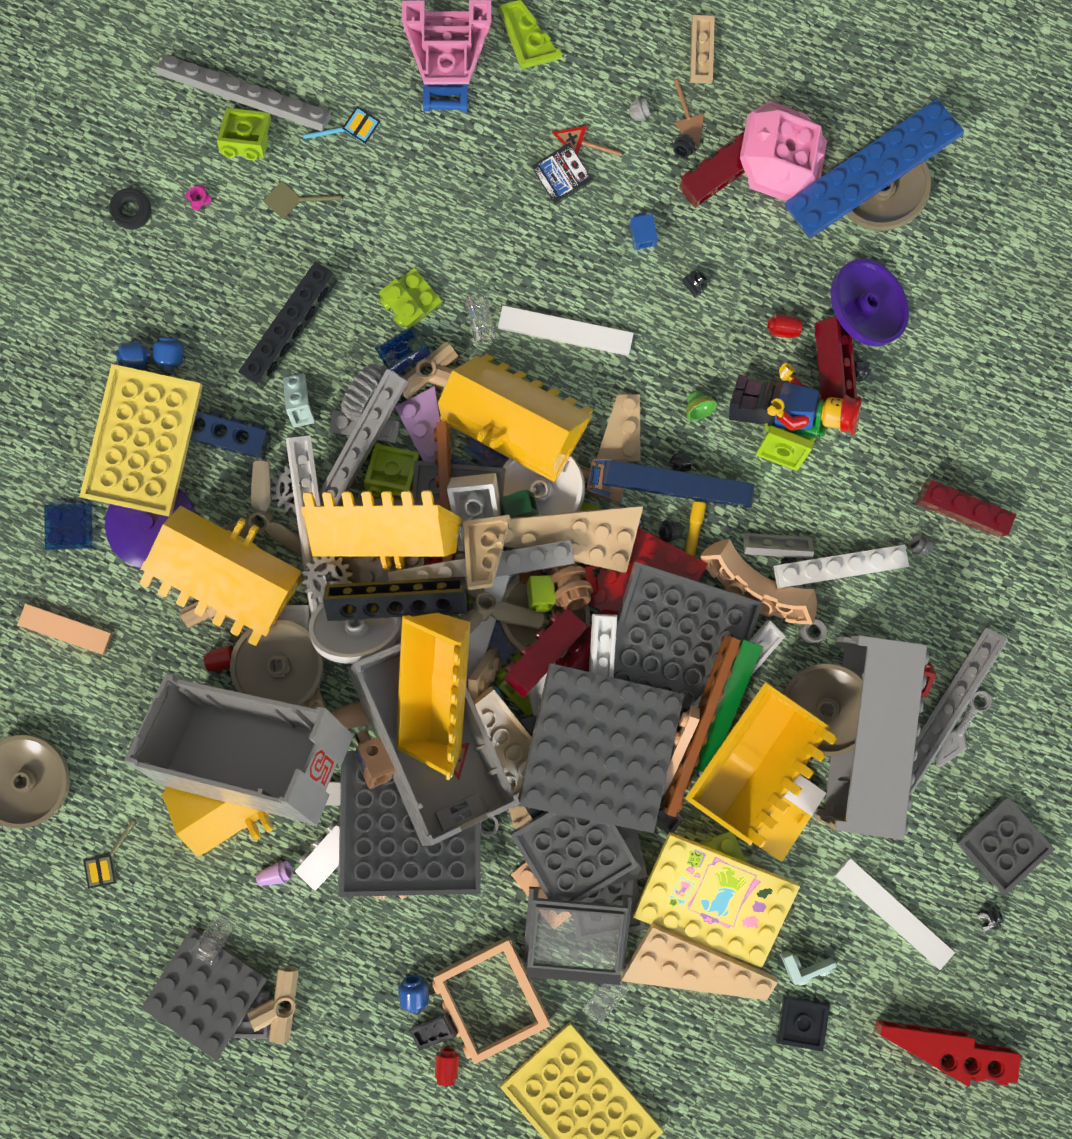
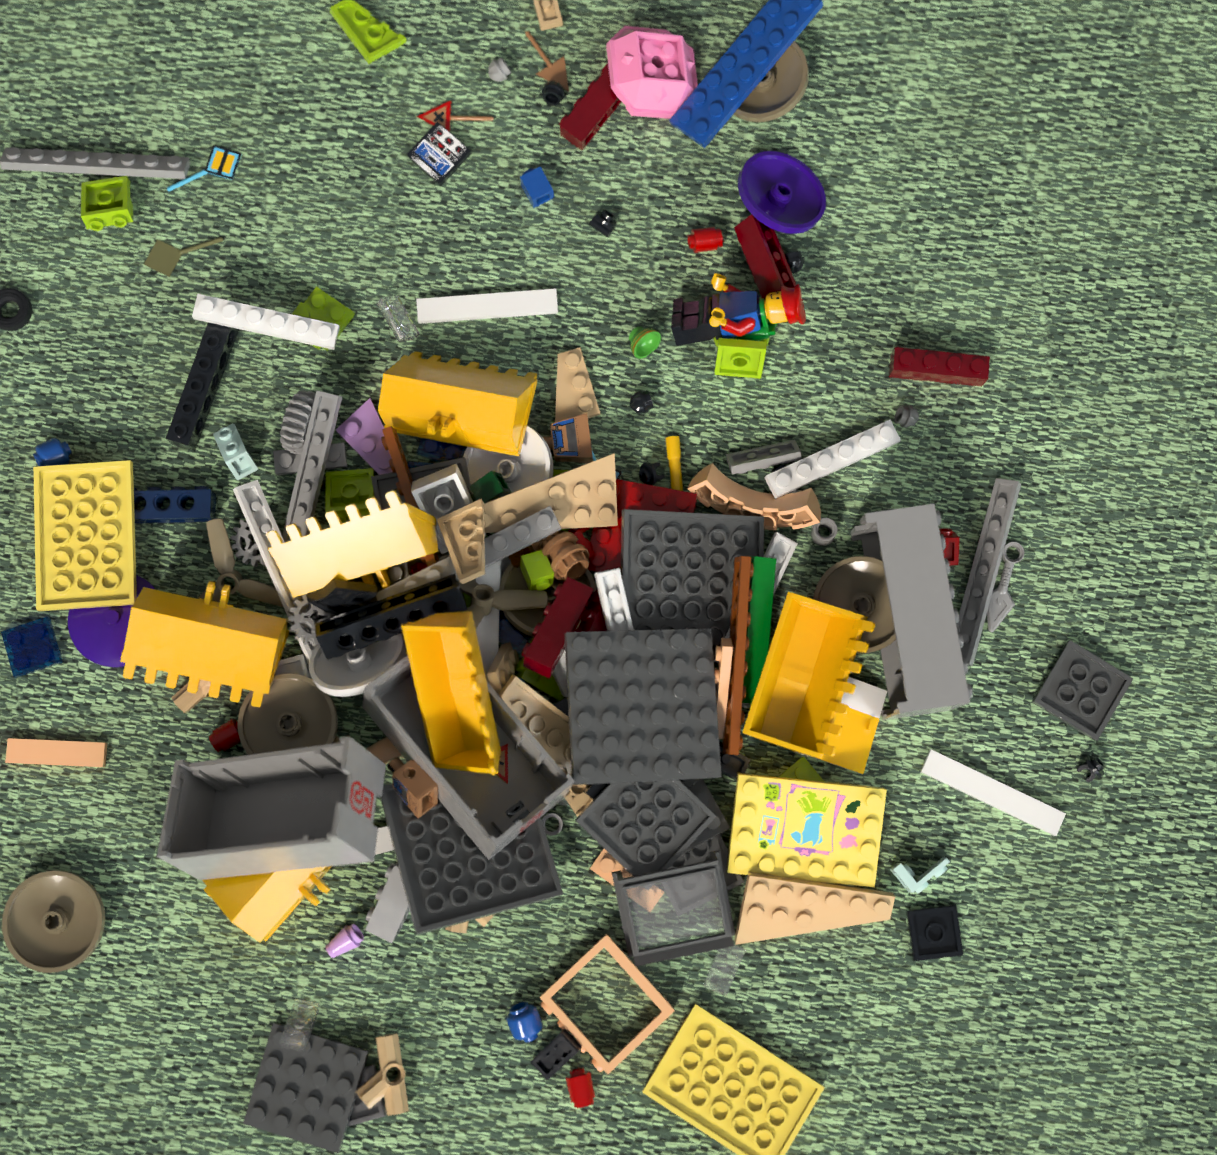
camera: 15 degrees left, 5 degrees down
(101, 869) = (161, 991): piece -> none
(168, 353) = (88, 442): blue head -> none
(195, 191) = (71, 274): dark pink plate -> none
(358, 289) = (265, 321): none -> white plate
(358, 568) = (342, 596): none -> black plate
(403, 350) = (328, 371): plate -> none
(439, 362) = (367, 372): tan piece -> none
(445, 89) = (298, 98): blue plate -> none
(446, 41) = (287, 58): bright pink wedge -> none
(677, 484) = (644, 423): dark blue beam -> none
(933, 1043) = (1072, 912): red brick -> none

